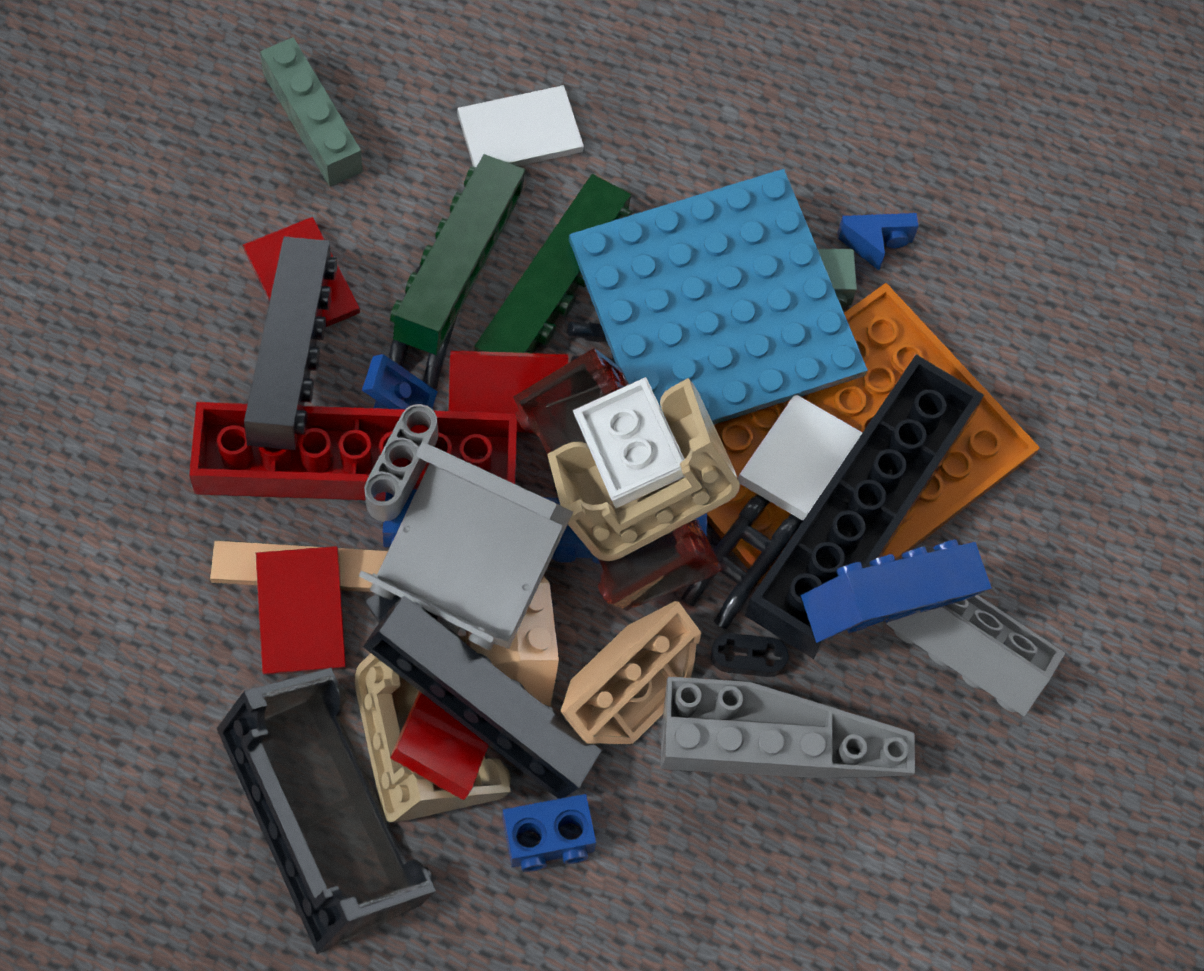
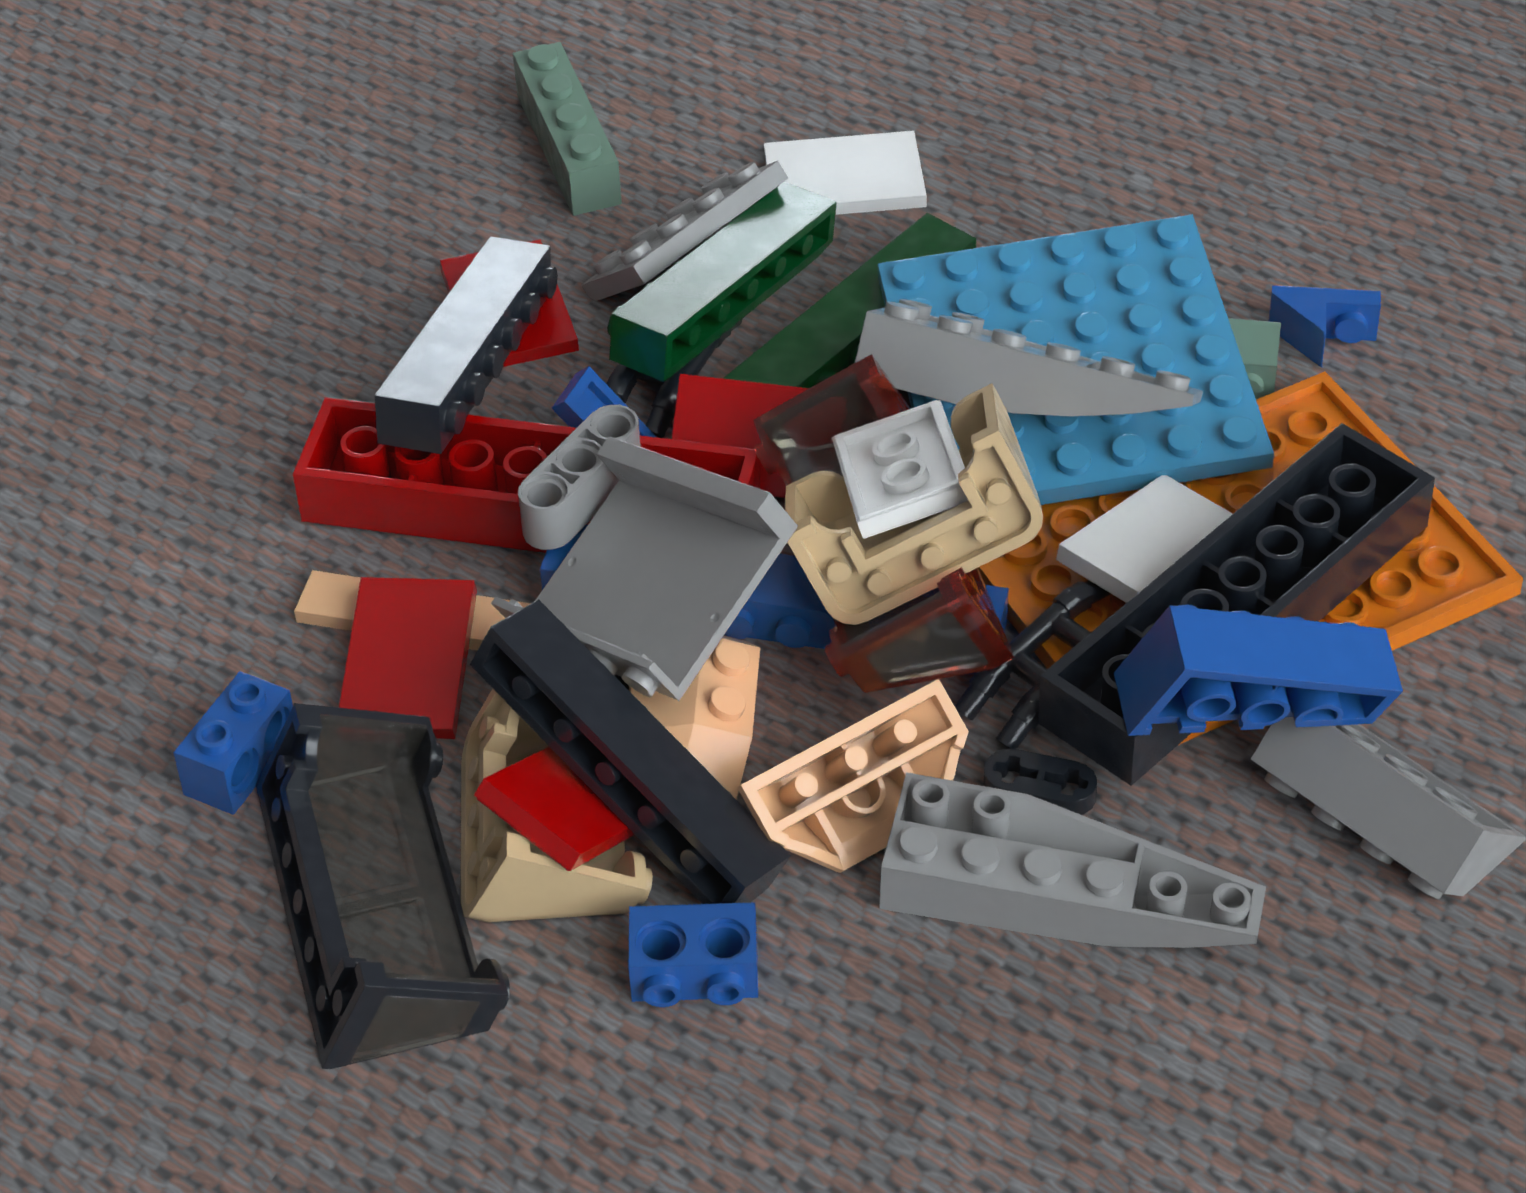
camera: 20 degrees right, 20 degrees down
(198, 703) = (232, 742): none -> blue brick
(419, 206) = (686, 228): none -> light grey plate
(684, 335) = (957, 356): none -> light grey wedge

